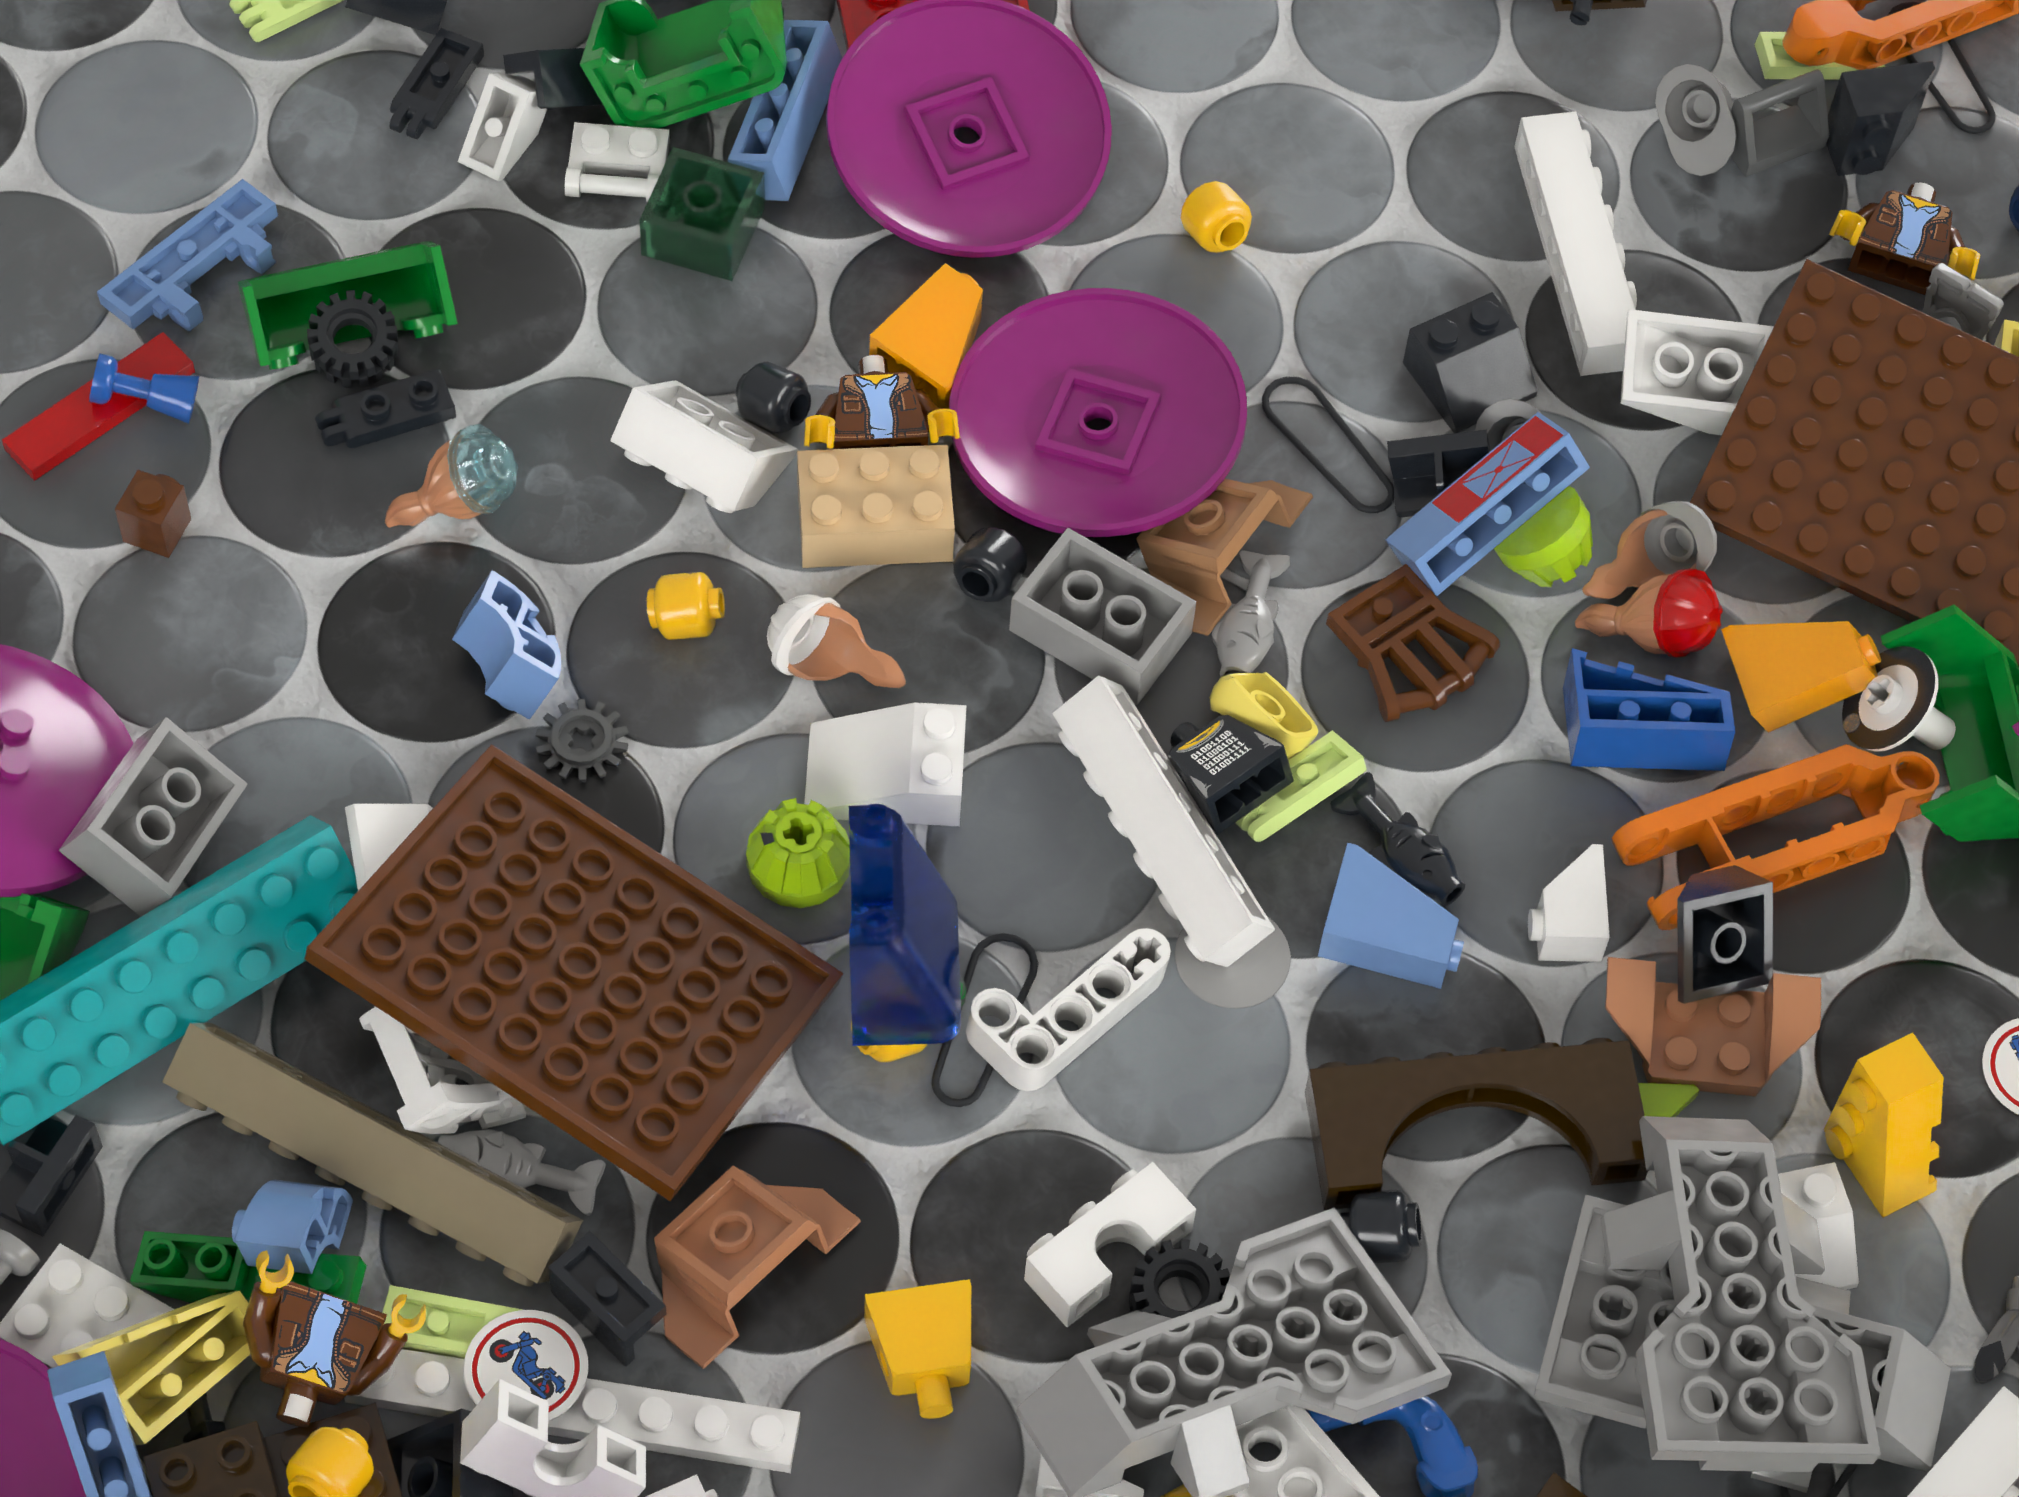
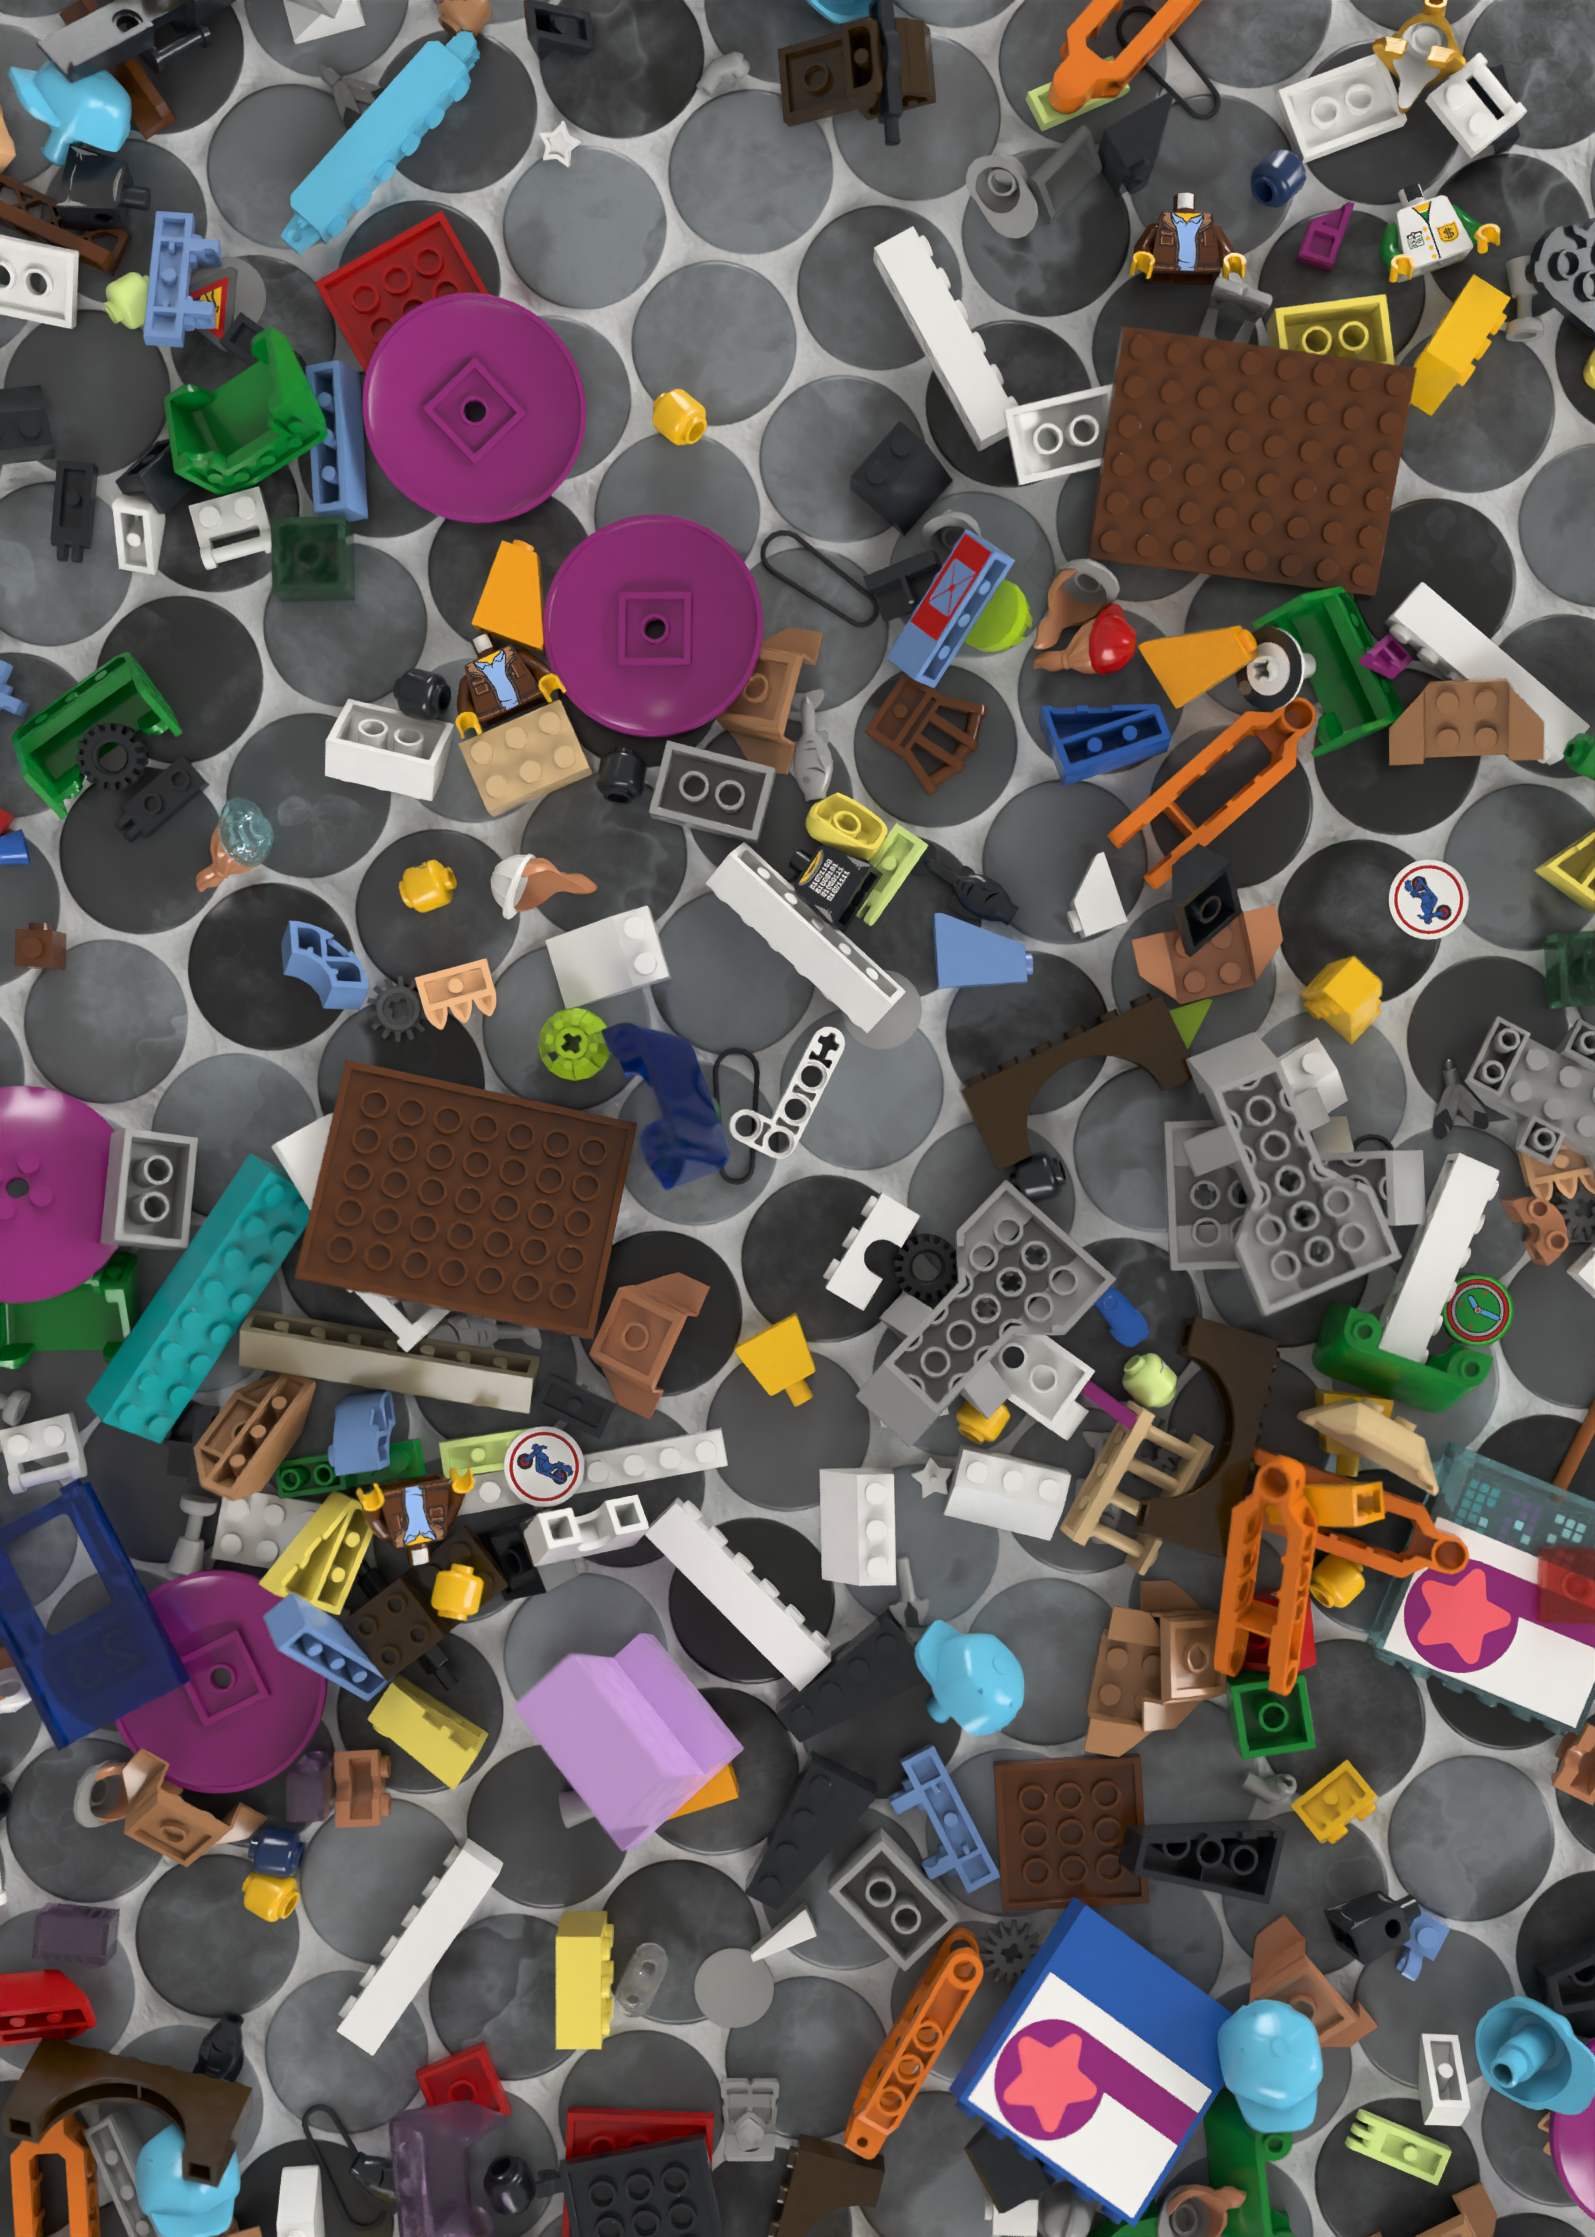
camera: 10 degrees left, 30 degrees up
(147, 1174) = (253, 1435): none -> medium nougat wedge
(669, 736) = (457, 990): none -> light nougat plate

